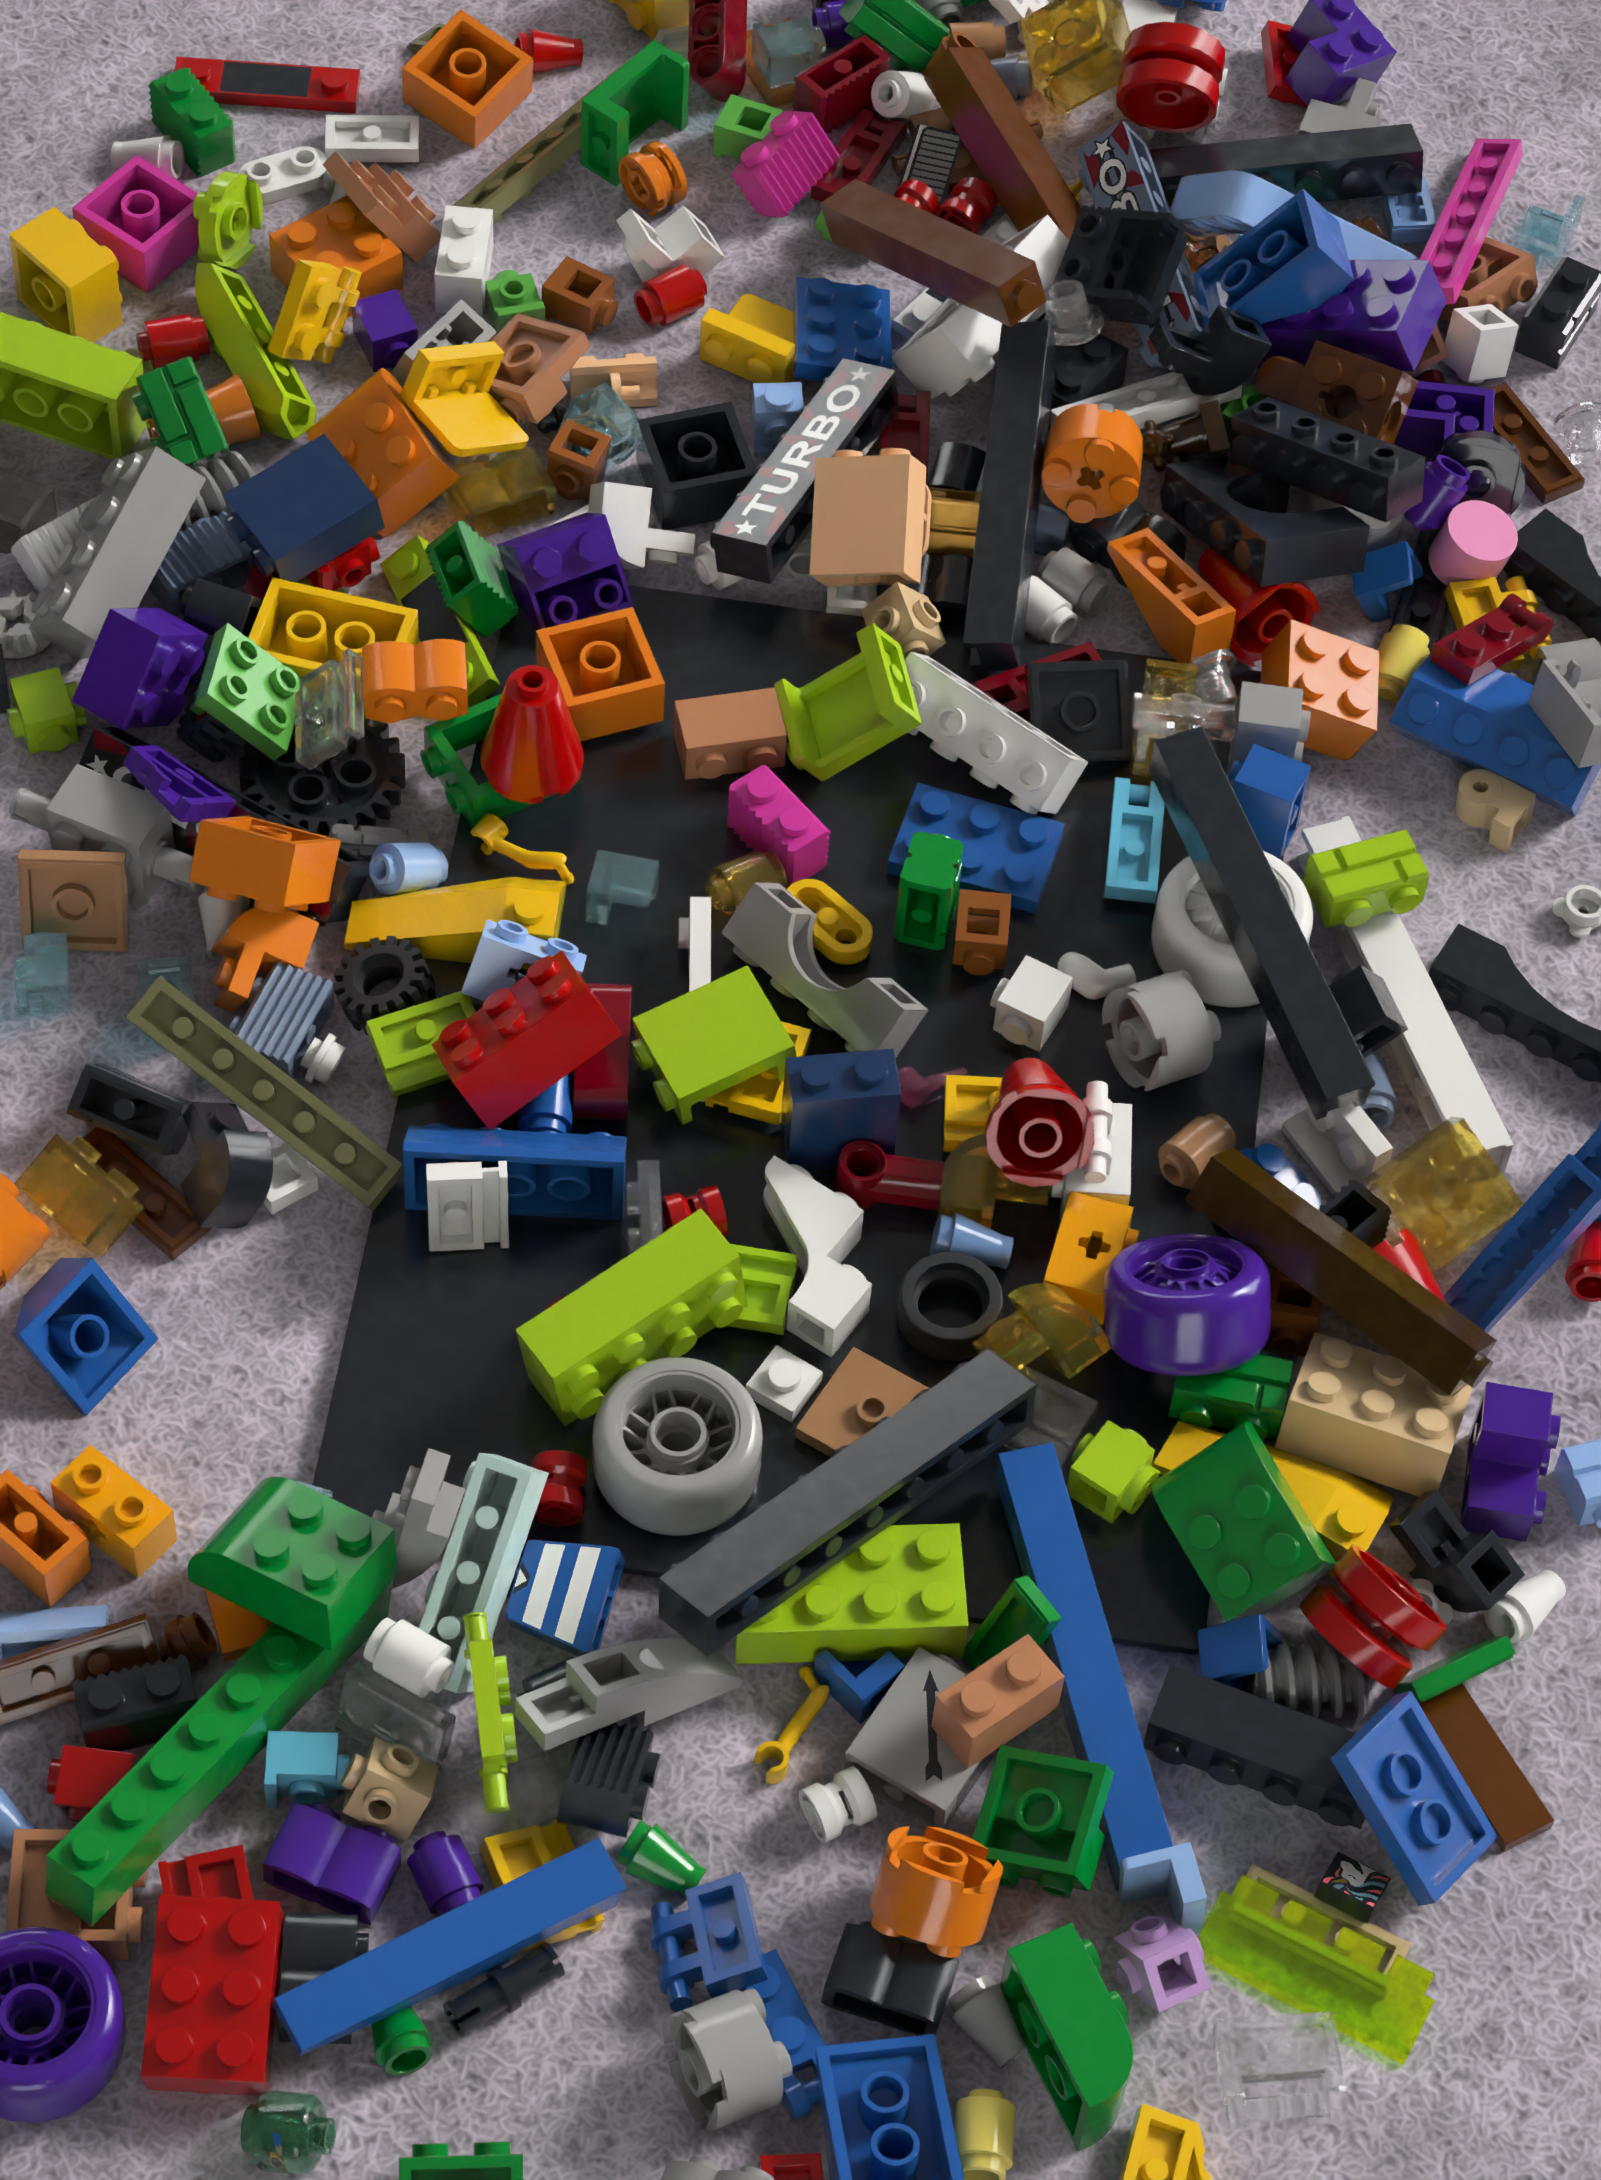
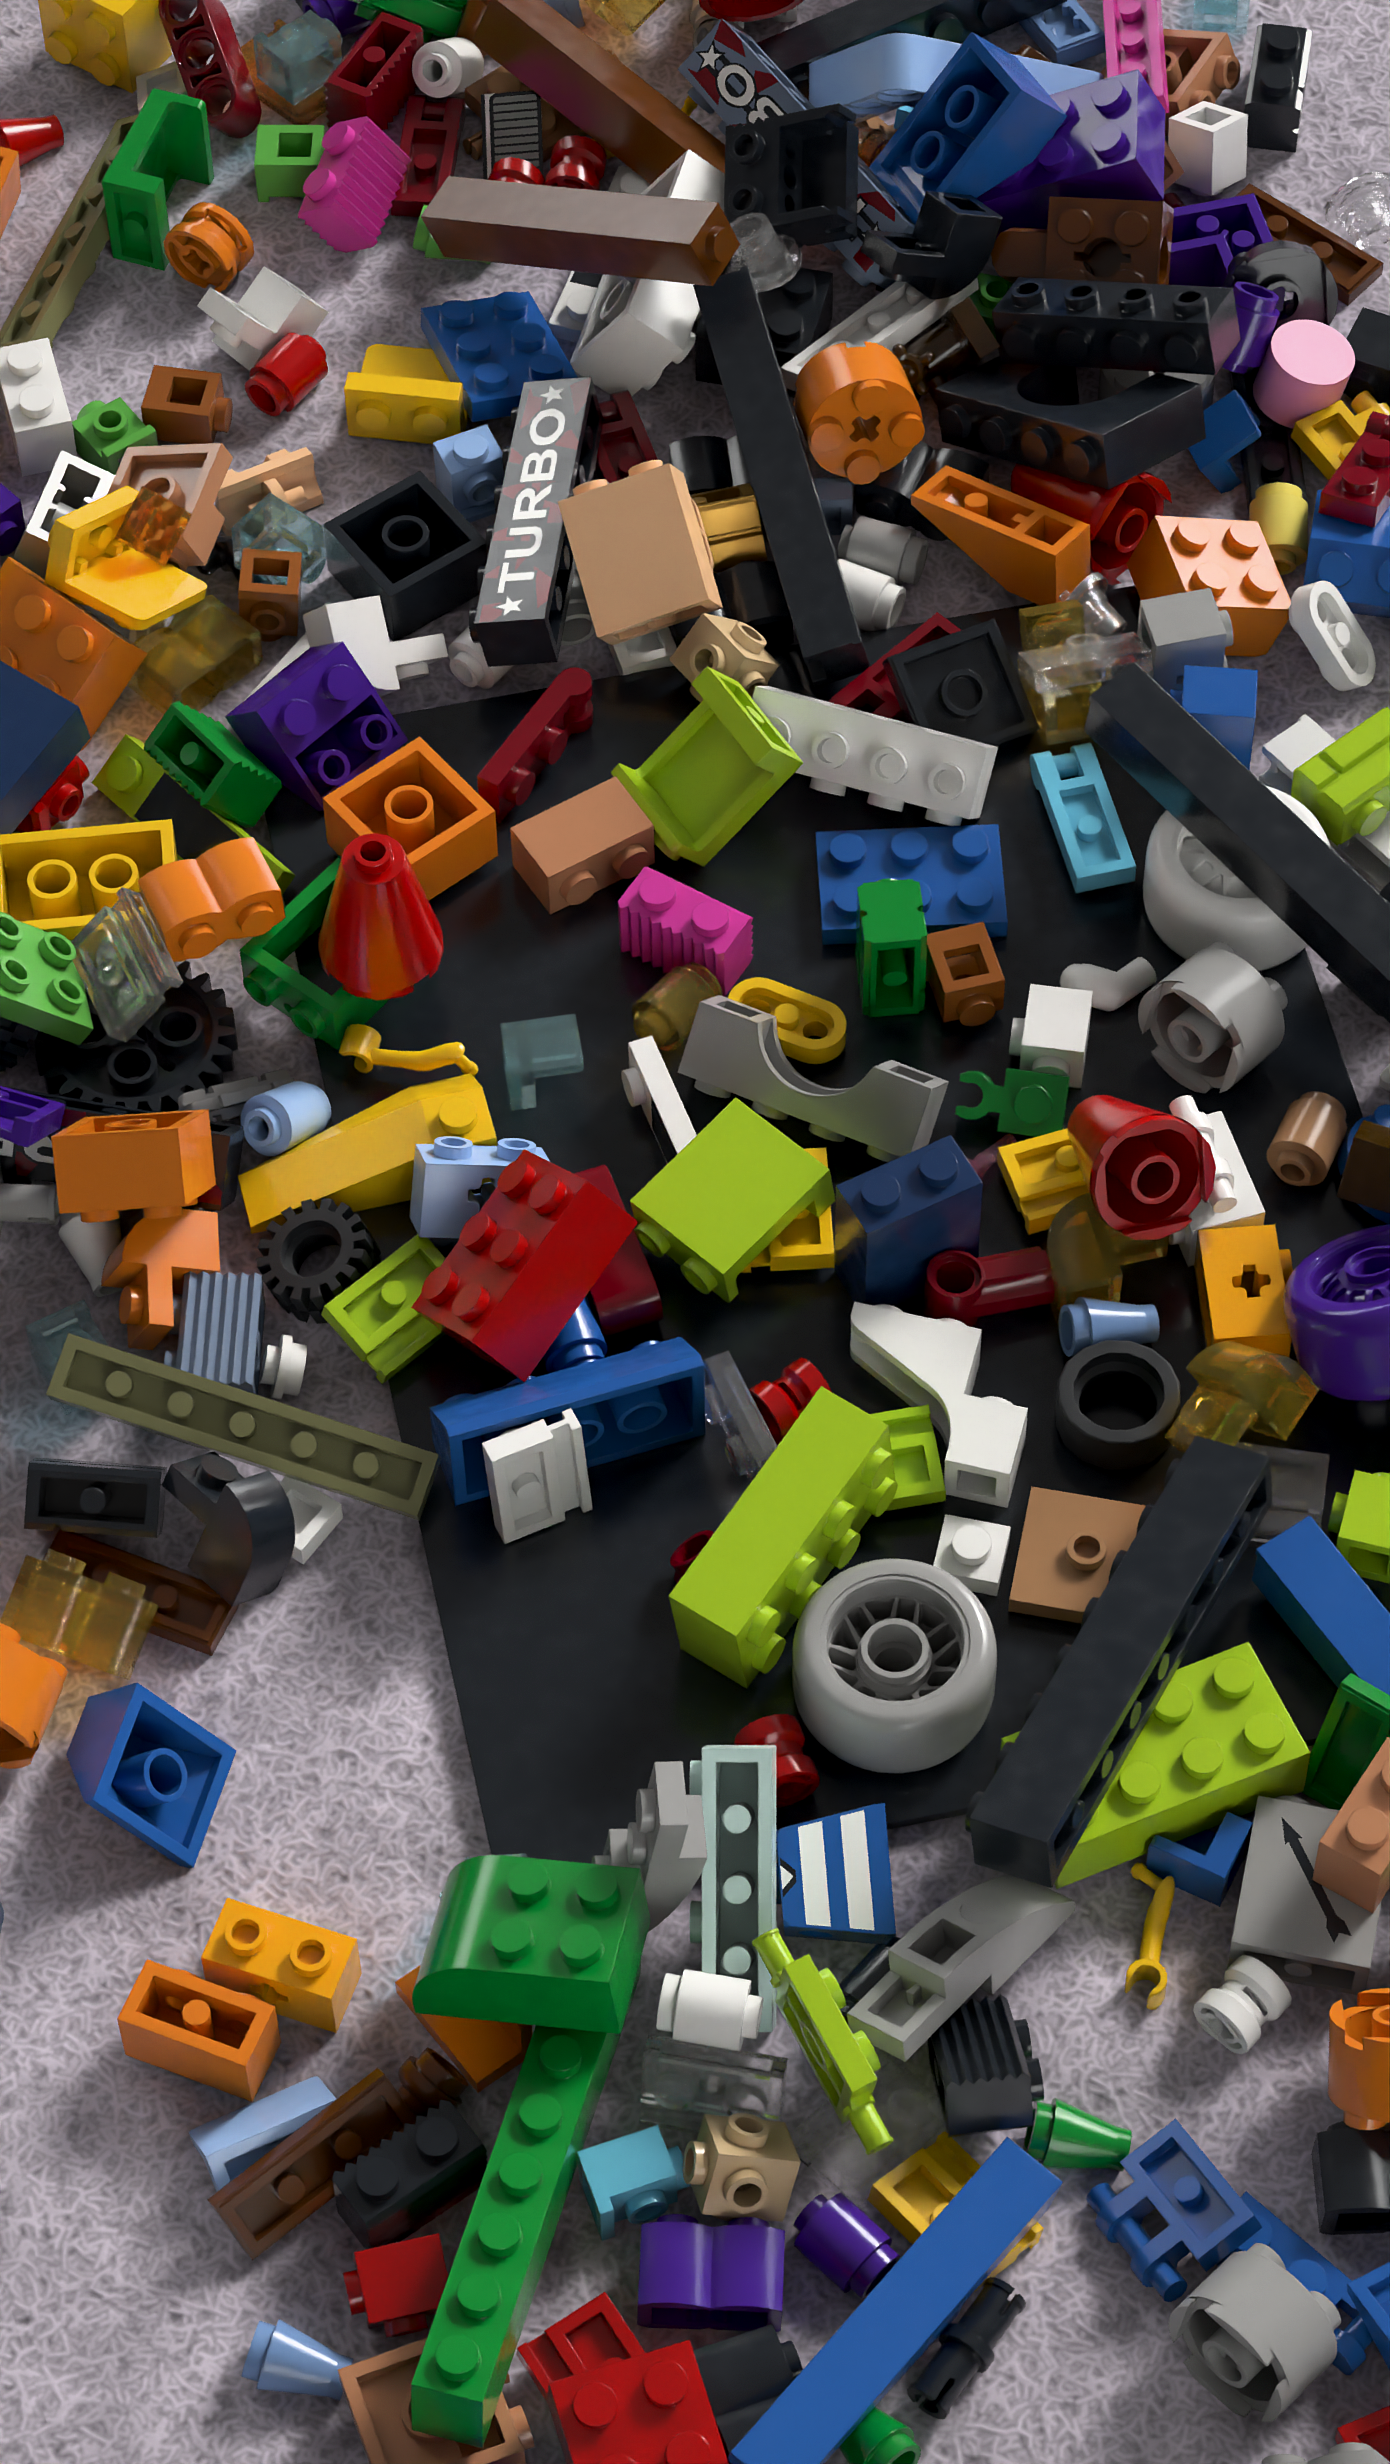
camera: 15 degrees left, 0 degrees up
(500, 379) = (153, 526): none -> clear orange plate
(729, 642) = (537, 741): none -> dark red plate
(985, 1046) = (1027, 1102): none -> green plate
(1401, 761) = (1332, 635): none -> white plate

